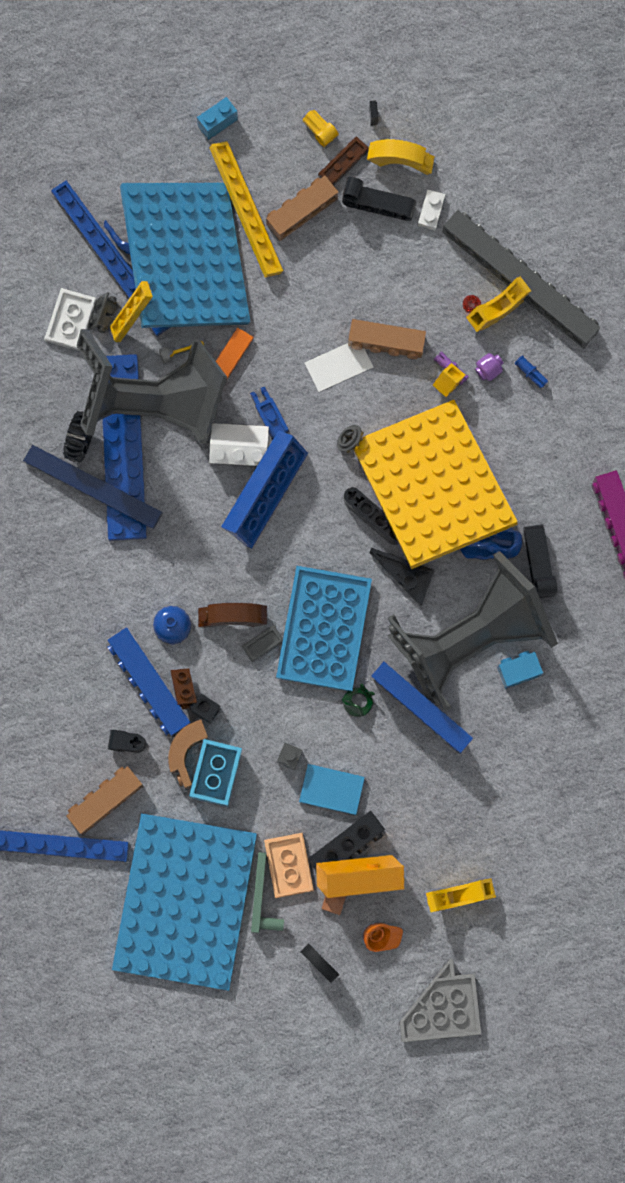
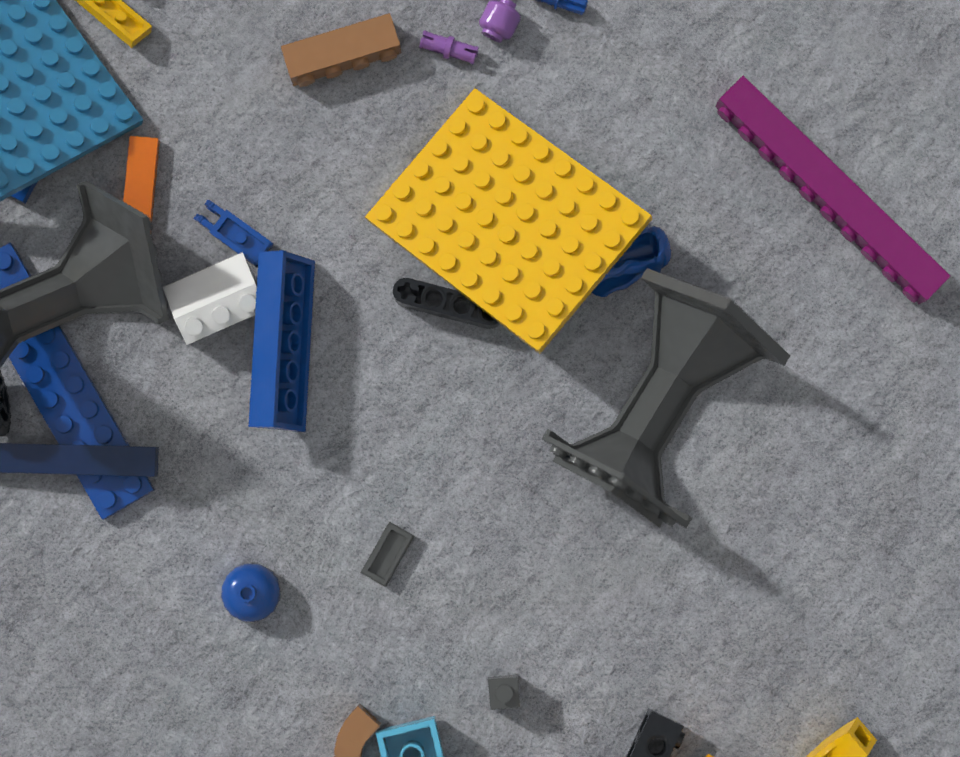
camera: 30 degrees left, 5 degrees up
(149, 682) = (259, 689): blue brick -> none
(167, 354) = (52, 221): light grey hinge -> none
(183, 687) = (310, 673): reddish brown hinge -> none
(211, 713) = (367, 681): black brick -> none
(232, 614) = (327, 538): reddish brown arch -> none
(324, 628) = (460, 491): dark azure plate -> none
(331, 789) = (582, 705): dark azure tile -> none
(337, 366) = (293, 121): white sticker -> none
(350, 432) = (360, 202): dark grey gear -> none
(353, 709) = (554, 582): dark green piece -> none
(414, 580) = (549, 367): black wing -> none
(422, 707) = (650, 537): blue arch -> none
(448, 380) = (454, 65): yellow brick -> none
(519, 669) = (750, 413): dark azure brick -> none
(539, 561) = (702, 251): black beam -> none

